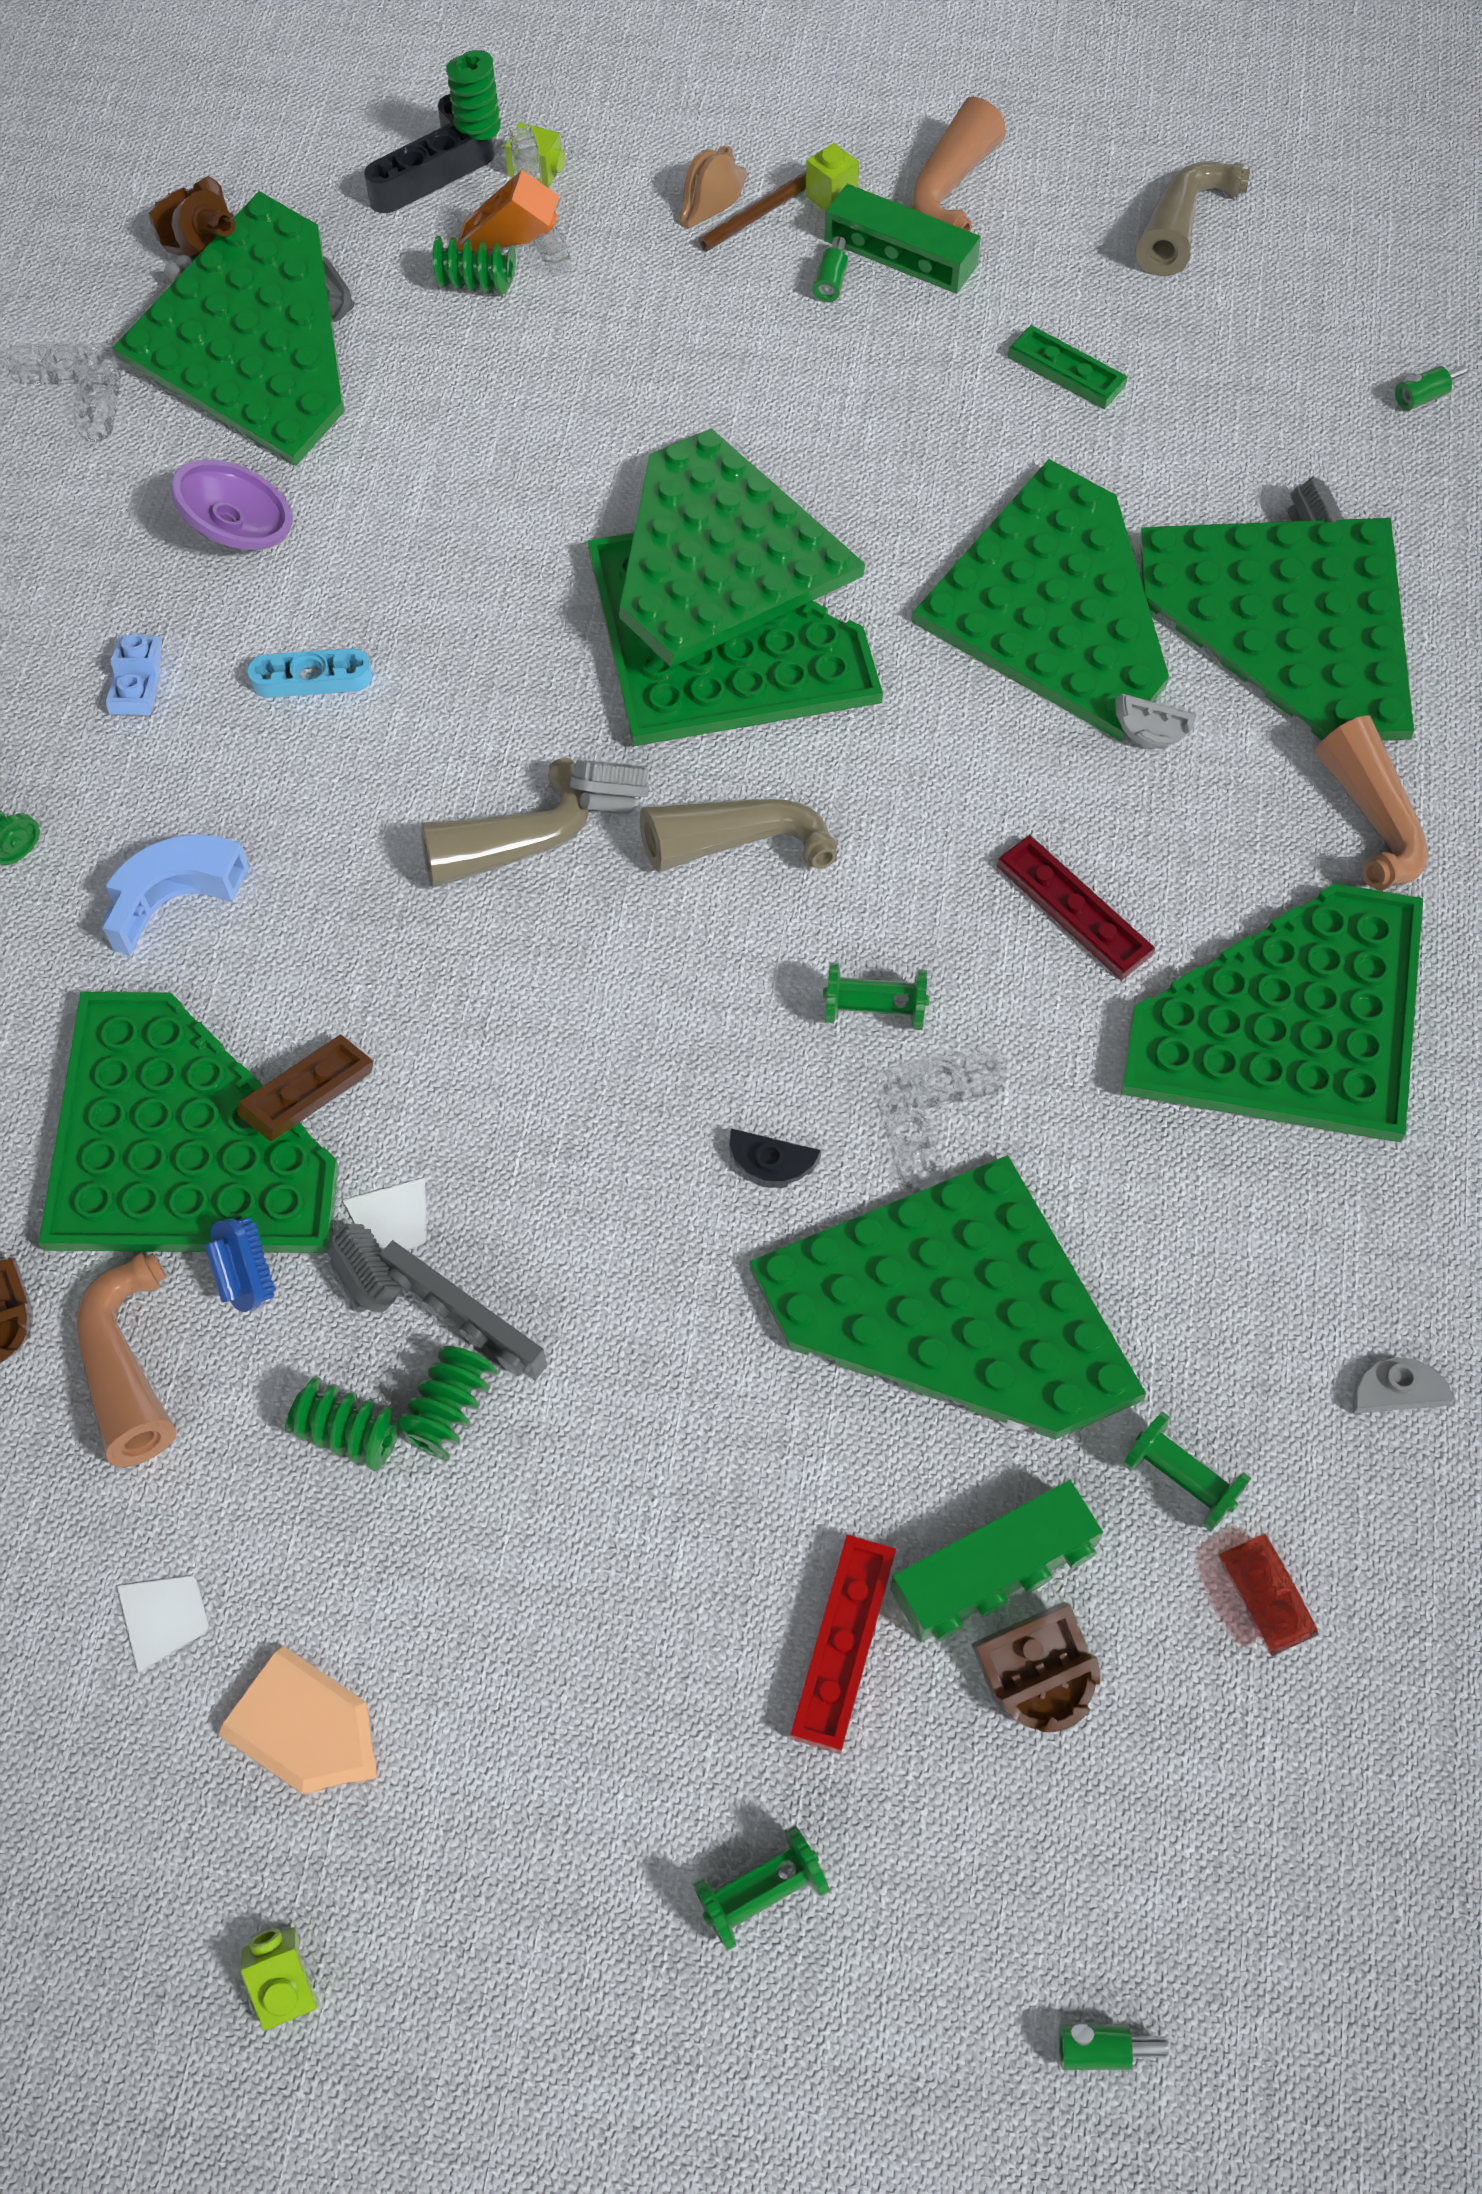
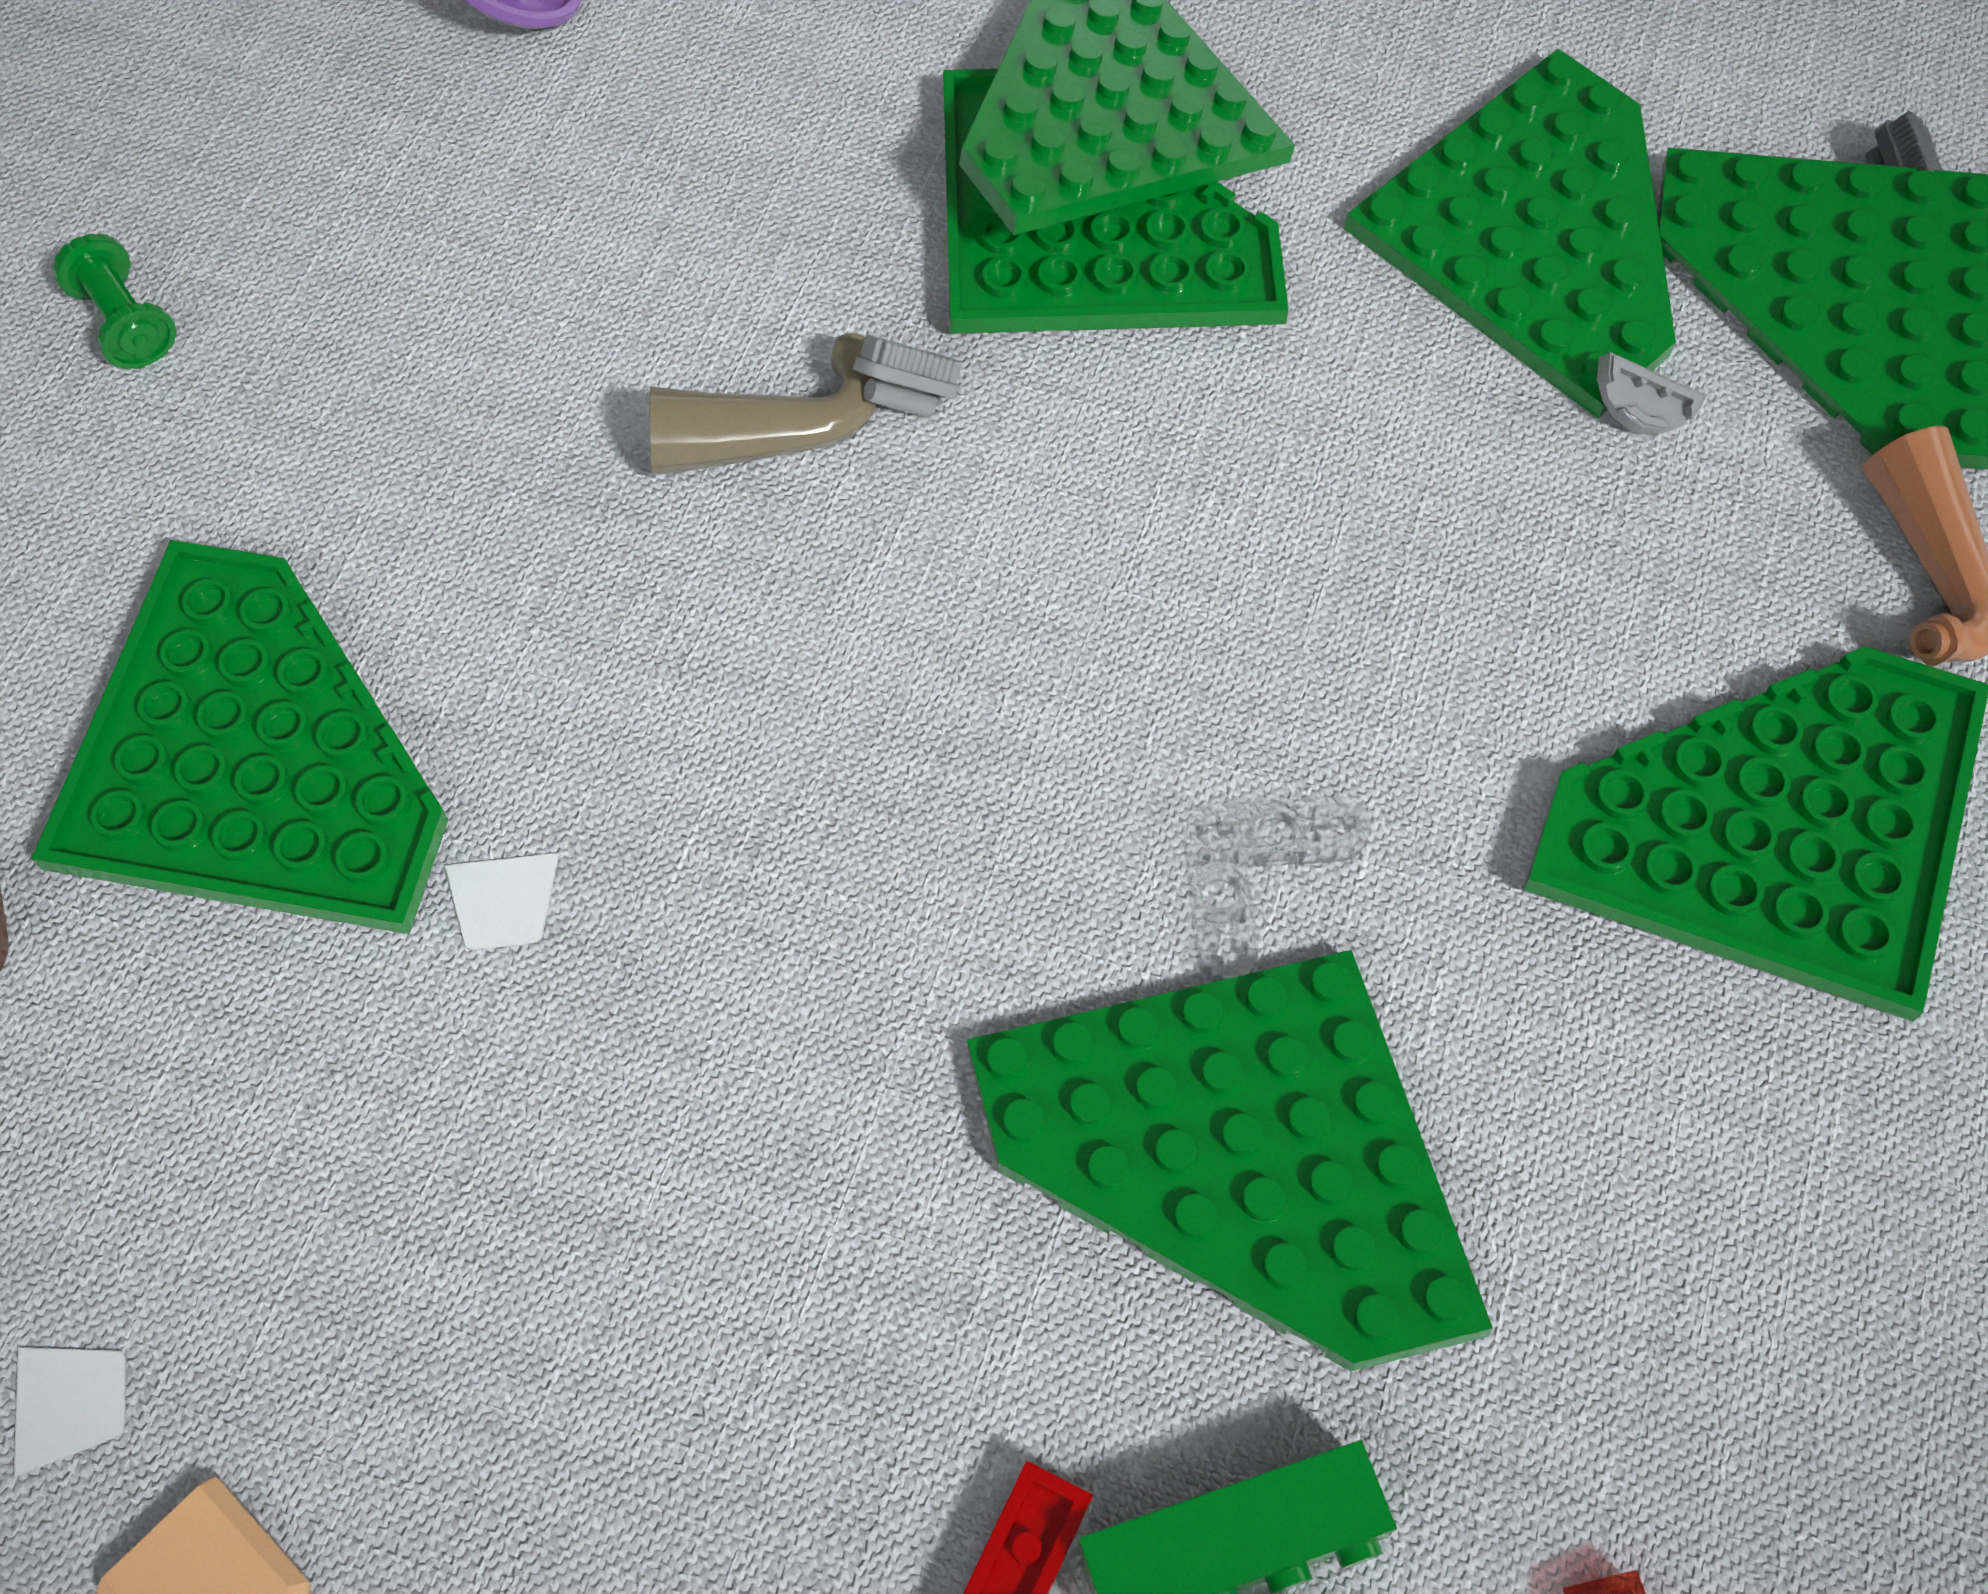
camera: 10 degrees right, 0 degrees up
(123, 1402) = (83, 1092): nougat animal -> none
(135, 675) = (346, 160): light blue slope -> none
(165, 871) = (316, 406): light blue arch -> none
(239, 1264) = (281, 930): blue piece -> none
(298, 661) = (524, 197): medium azure beam -> none
(305, 1087) = (422, 708): reddish brown plate -> none
(342, 1424) = (364, 1176): green piece -> none
(361, 1270) = (445, 963): dark grey piece -> none
(444, 1398) = (510, 1165): green piece -> none
(476, 1321) = (579, 1065): dark grey plate -> none
(695, 830) = (1008, 450): dark tan animal -> none
(770, 1160) = (1025, 905): black plate -> none
(875, 996) = (1205, 703): green hose -> none
(1075, 907) = (1502, 627): dark red tile -> none
(1186, 1471) = (1537, 1457): green hose -> none
(1401, 1386) = (1868, 1378): light grey plate -> none

